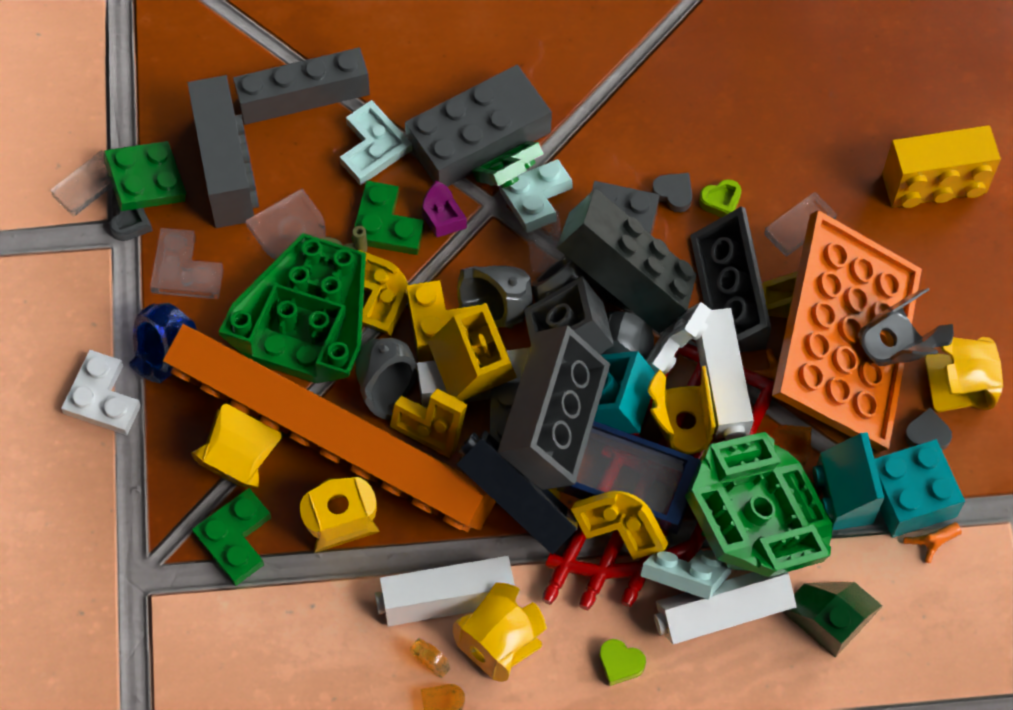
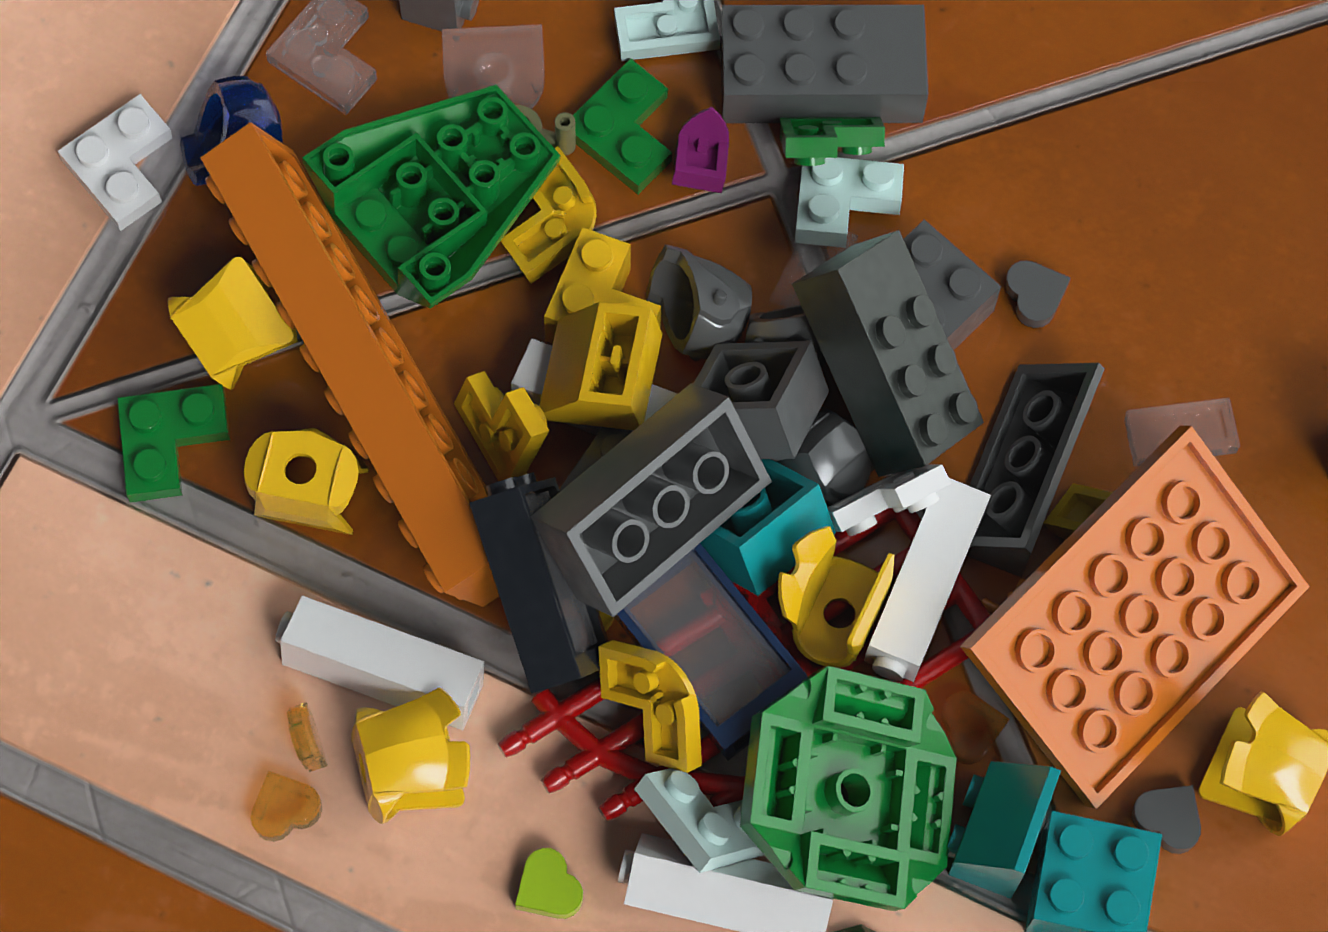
camera: 30 degrees right, 5 degrees up
(385, 373) = (481, 330): dark grey helmet -> none
(721, 198) = (1095, 337): lime tile -> none
(907, 341) = (1216, 679): dark grey piece -> none

